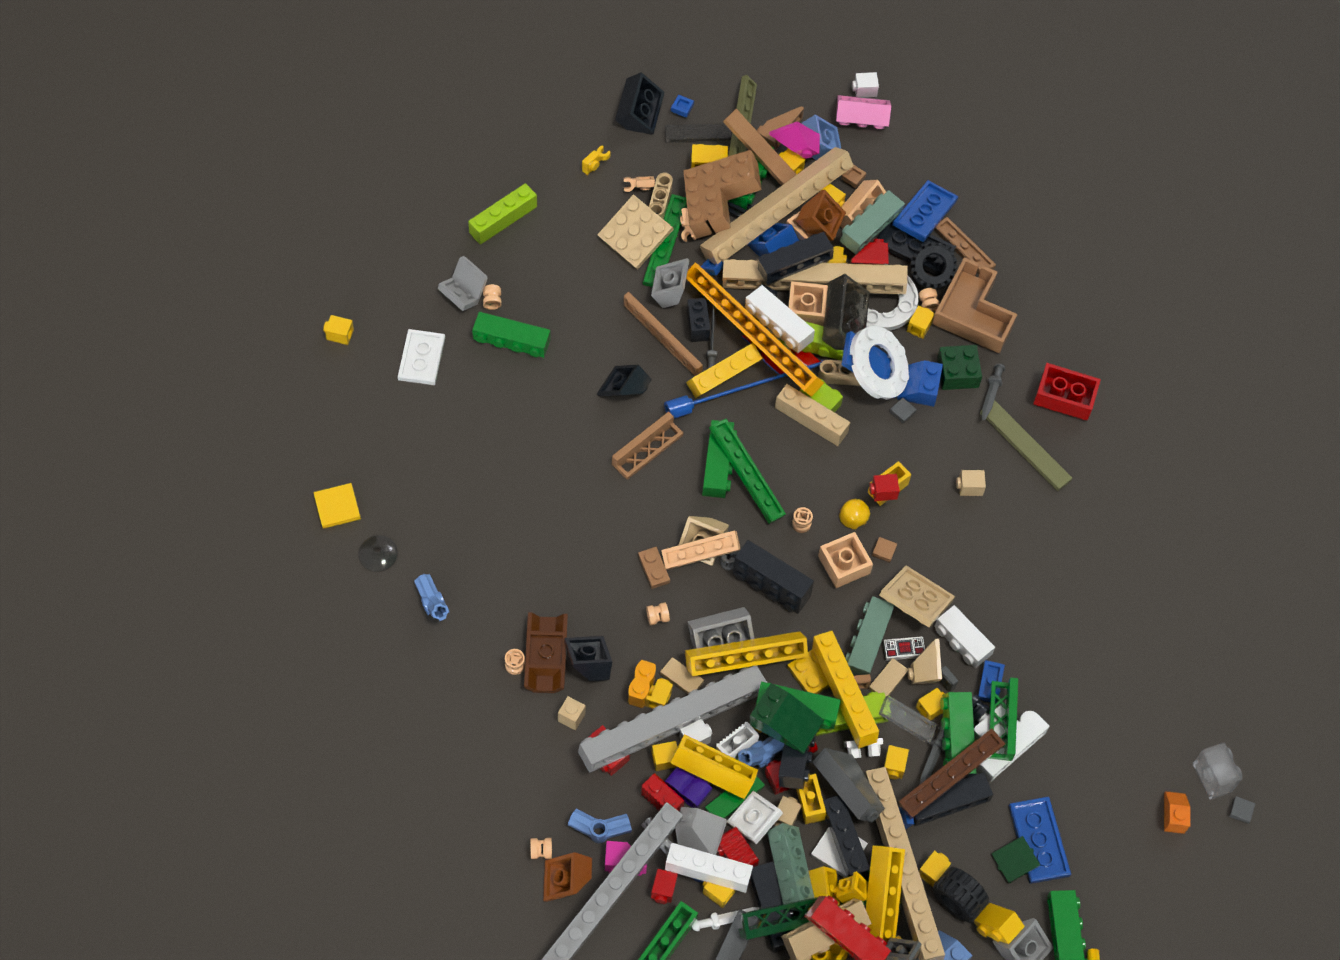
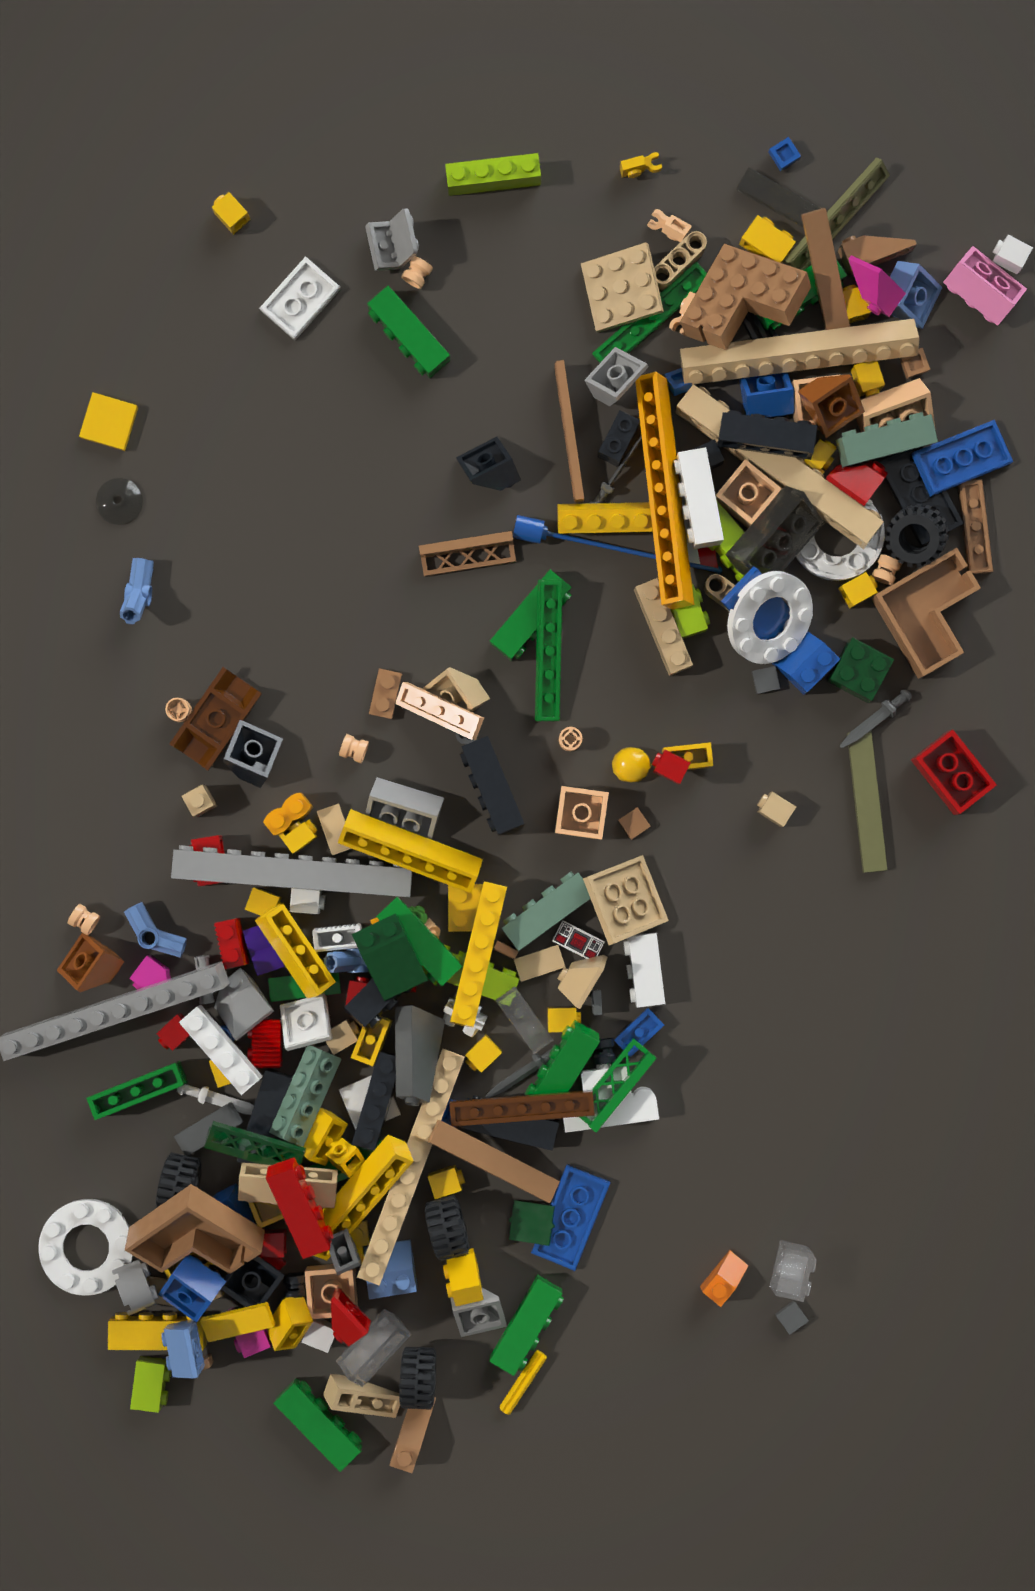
camera: 35 degrees right, 25 degrees up
(640, 104) = (737, 123): black slope -> none
(958, 826) = (493, 1161): none -> medium nougat tile

